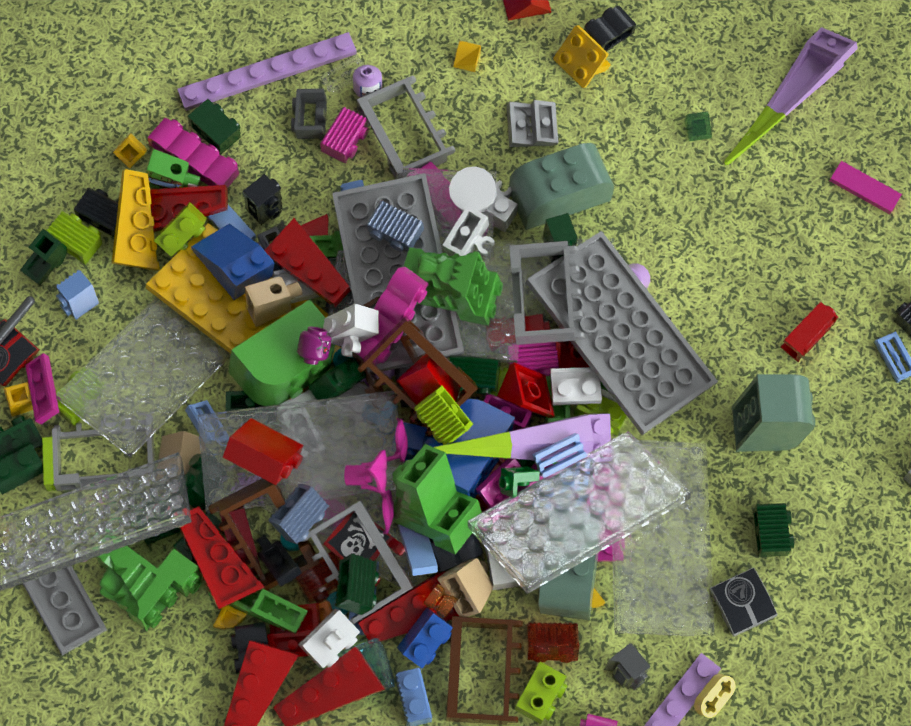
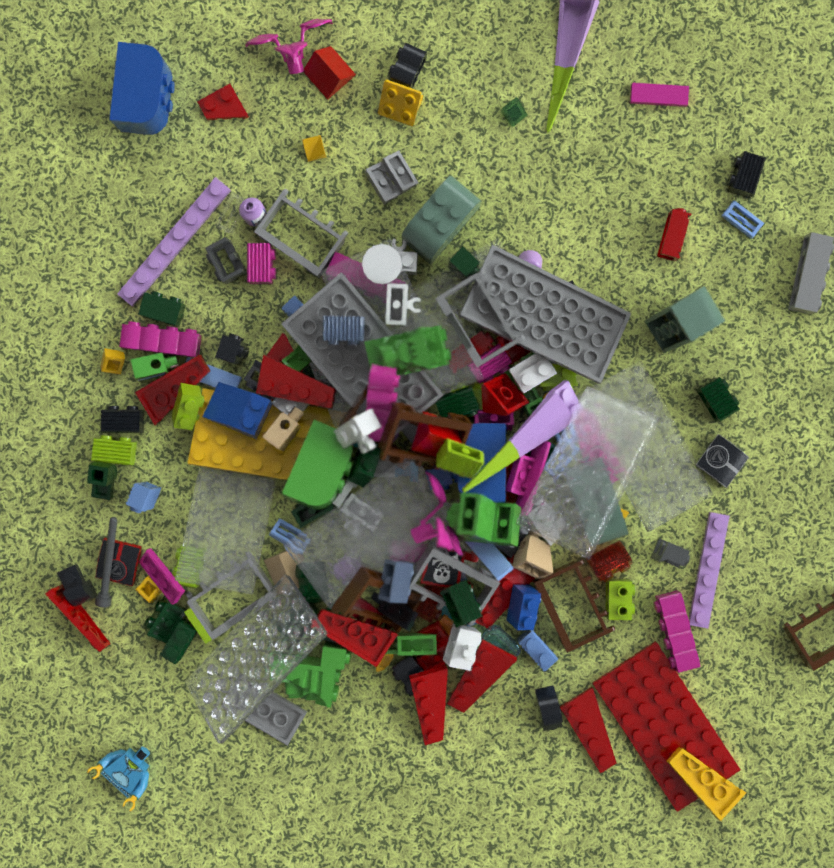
camera: 25 degrees left, 20 degrees up
(134, 224) = (151, 420): yellow wing -> none
(263, 451) = (348, 555): red brick -> none
(314, 345) = (339, 458): magenta head -> none
(445, 604) = (523, 580): clear orange wheel -> none
(515, 477) = (530, 467): green bracket -> none
(564, 463) = (554, 438): light blue tile -> none
(714, 695) = (734, 537): light yellow beam -> none

